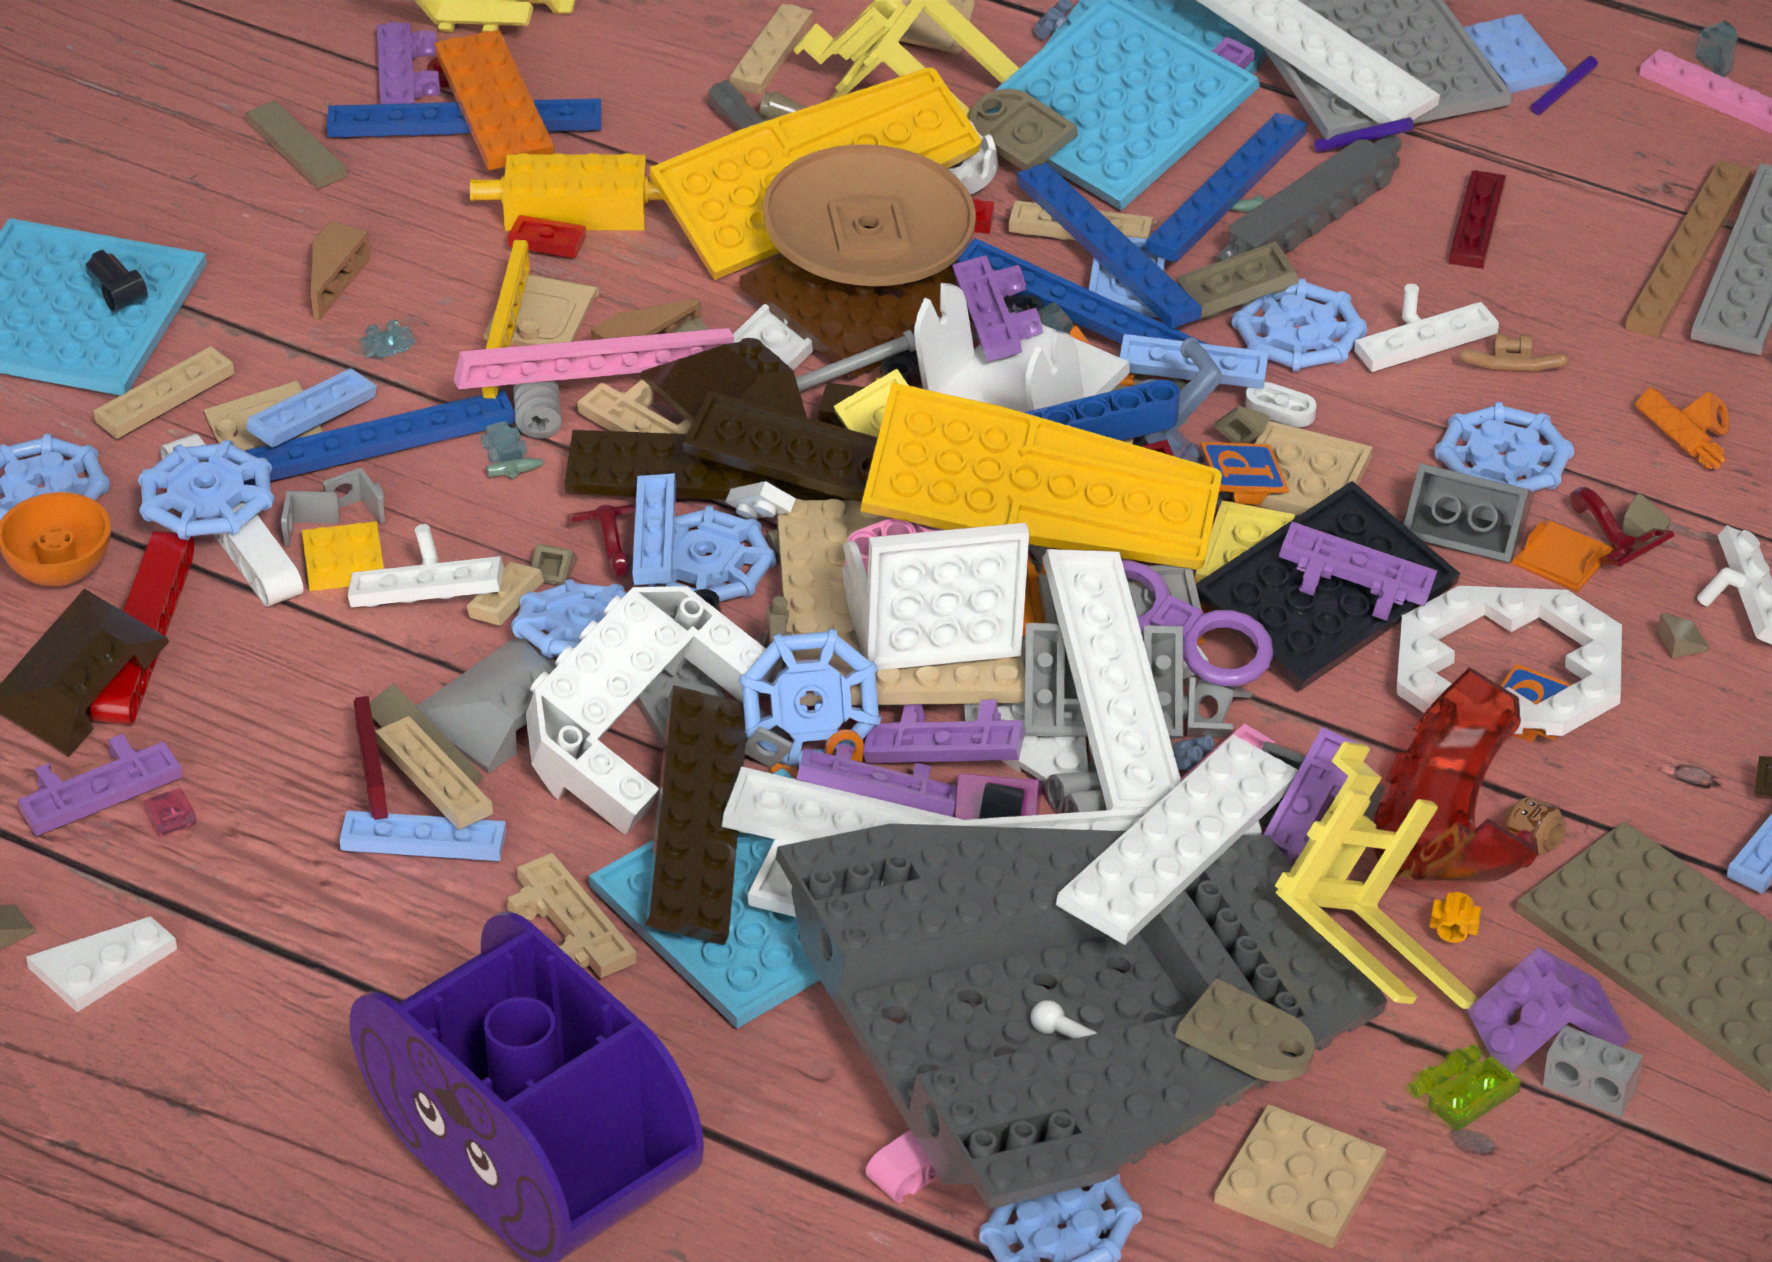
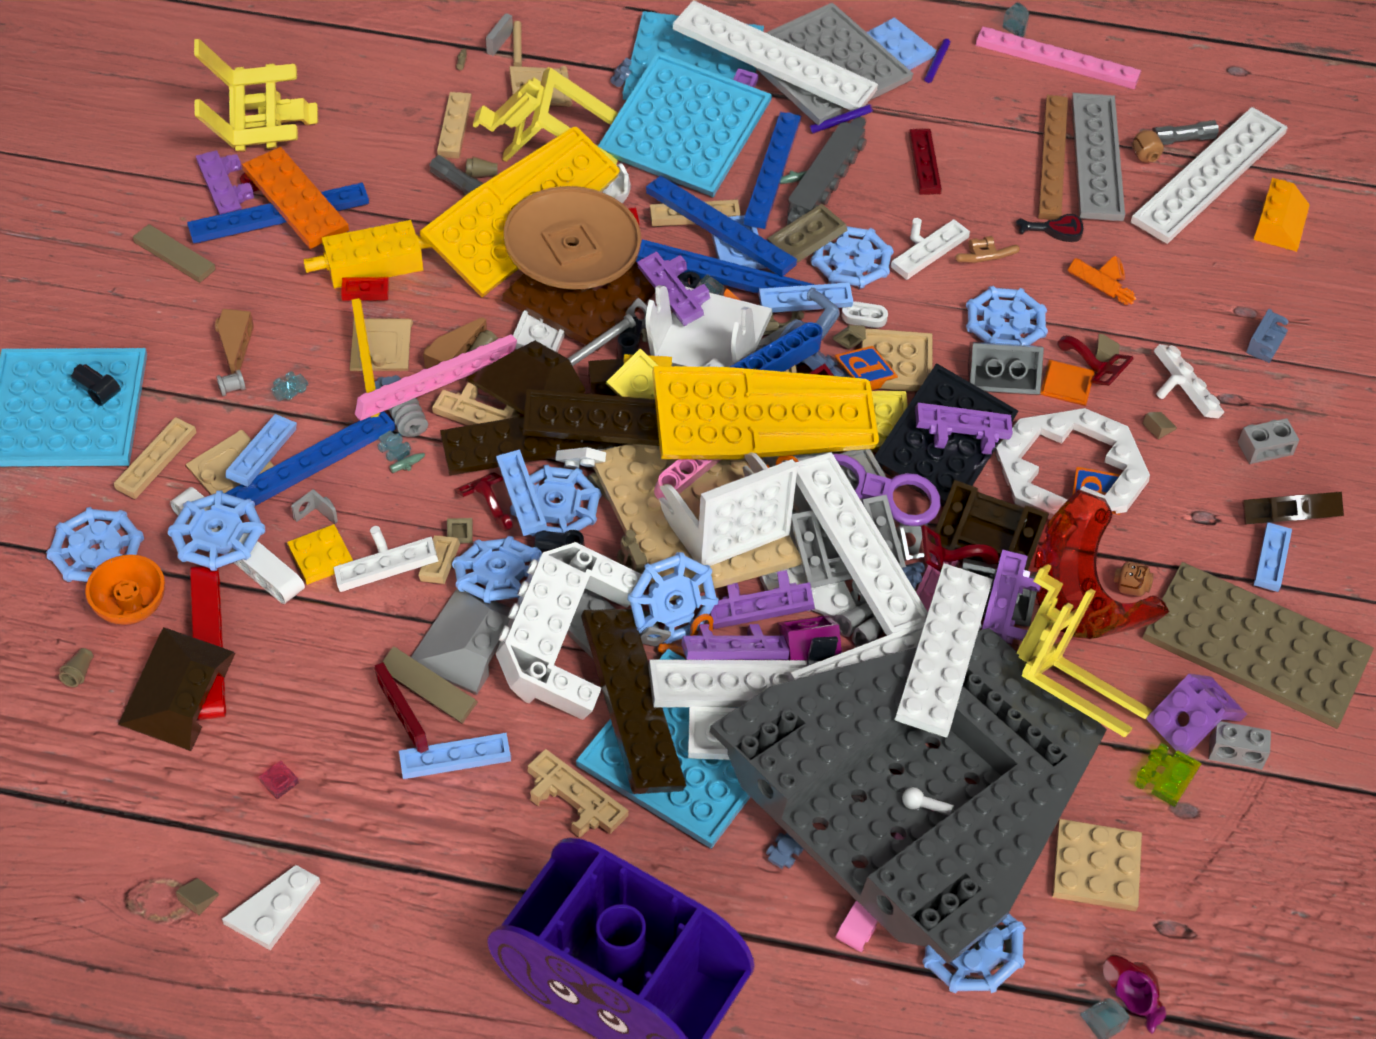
camera: 20 degrees left, 10 degrees up
(100, 788) = (206, 787): medium lavender hinge -> none
(306, 319) = (230, 382): none -> light grey bush
(308, 508) = (287, 524): light grey bracket -> none
(434, 772) = (448, 709): tan plate -> none
(839, 1054) = (782, 853): none -> sand blue piece
(1022, 128) = (638, 153): dark tan plate -> none
(1247, 1033) = (1047, 783): dark tan plate -> none
(1248, 731) = (942, 555): none -> dark red piece
(1319, 691) = (985, 520): none -> dark brown slope
(1455, 917) = (1116, 655): light orange gear -> none
(1661, 349) = (1066, 228): none -> black piece

